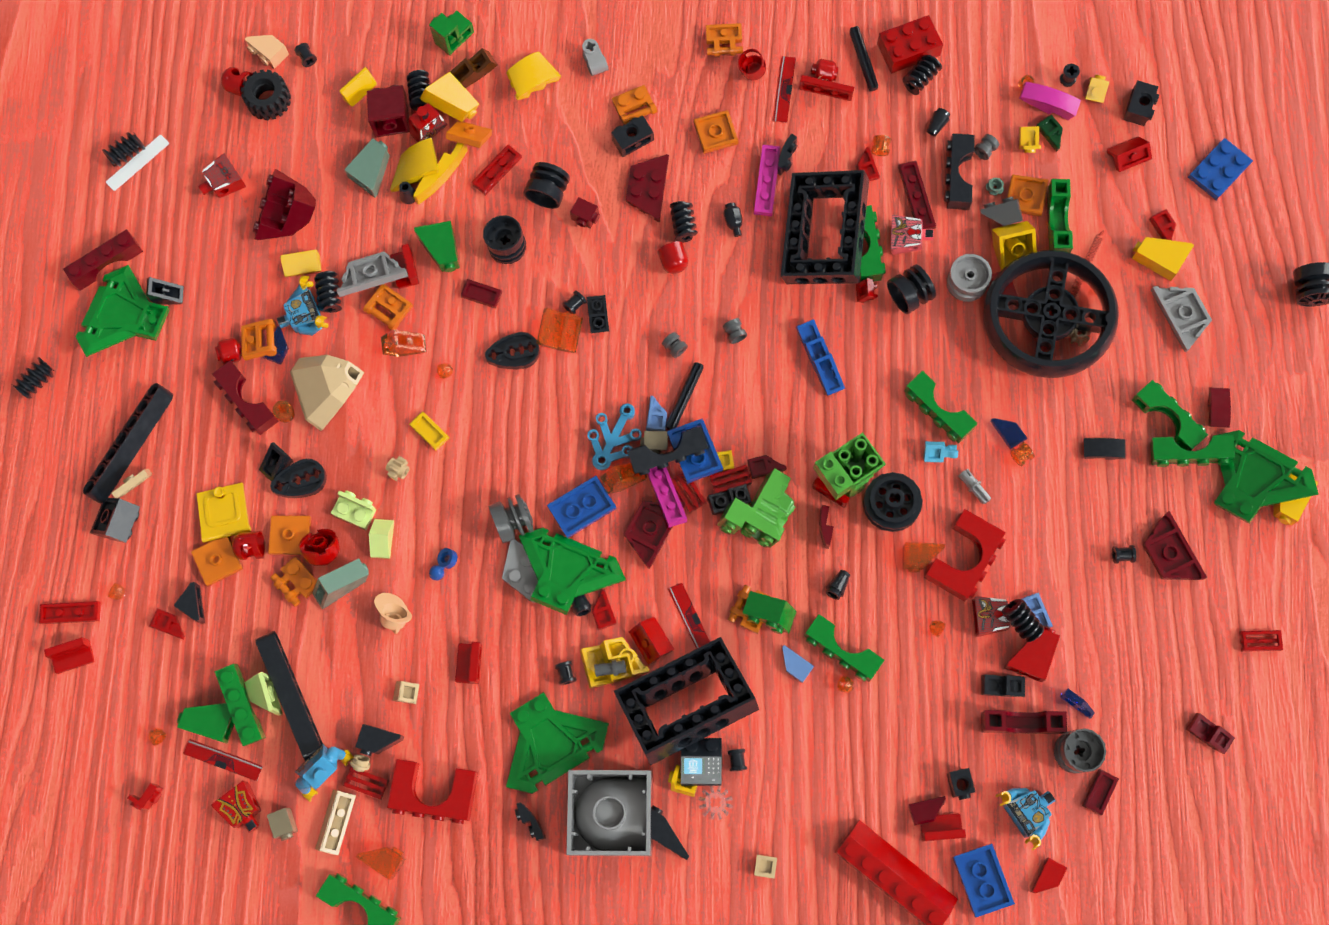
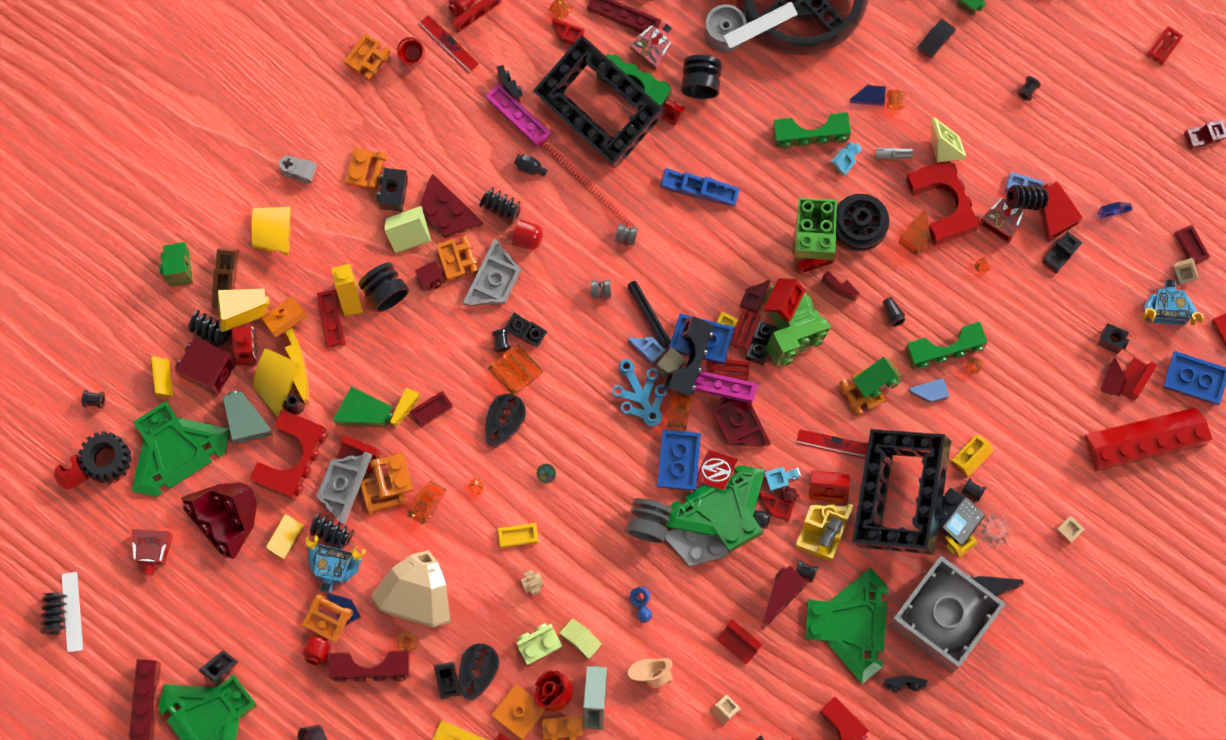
camera: 55 degrees left, 0 degrees up
(268, 49) = (60, 426): light nougat slope -> none
(310, 137) = (173, 449): none -> green plate
(389, 224) = (290, 481): none -> red arch
(407, 307) = (398, 475): none -> orange plate
(469, 271) = (407, 402): none -> yellow slope
(494, 415) = (546, 473): none -> tile
(505, 239) = (403, 344): black wheel -> none
(524, 156) = (347, 290): none -> yellow slope
(530, 666) = (786, 588): none -> dark red slope
(596, 541) = (716, 470): none -> red sticker
(608, 169) = (407, 230): none -> yellowish green slope
(611, 217) = (451, 259): none -> orange plate
(619, 613) = (789, 494): none -> dark red plate
(620, 261) = (494, 279): none -> light grey wing
(627, 595) = (779, 478): none -> medium azure plate
(715, 131) = (443, 123): orange plate -> none
(753, 264) = (577, 178): none -> red piece
(767, 738) = (972, 455): none -> yellow slope
(771, 486) = (785, 298): none -> red panel
(991, 299) = (760, 25): none -> white sticker
(1018, 520) = (945, 142): none -> yellowish green slope
(1024, 722) = (1102, 257): dark red arch -> none
(1072, 803) = (1186, 271): none -> tan slope
(1090, 755) = (1158, 227): dark grey wheel -> none
(1171, 552) = (1052, 54): dark red wing -> none

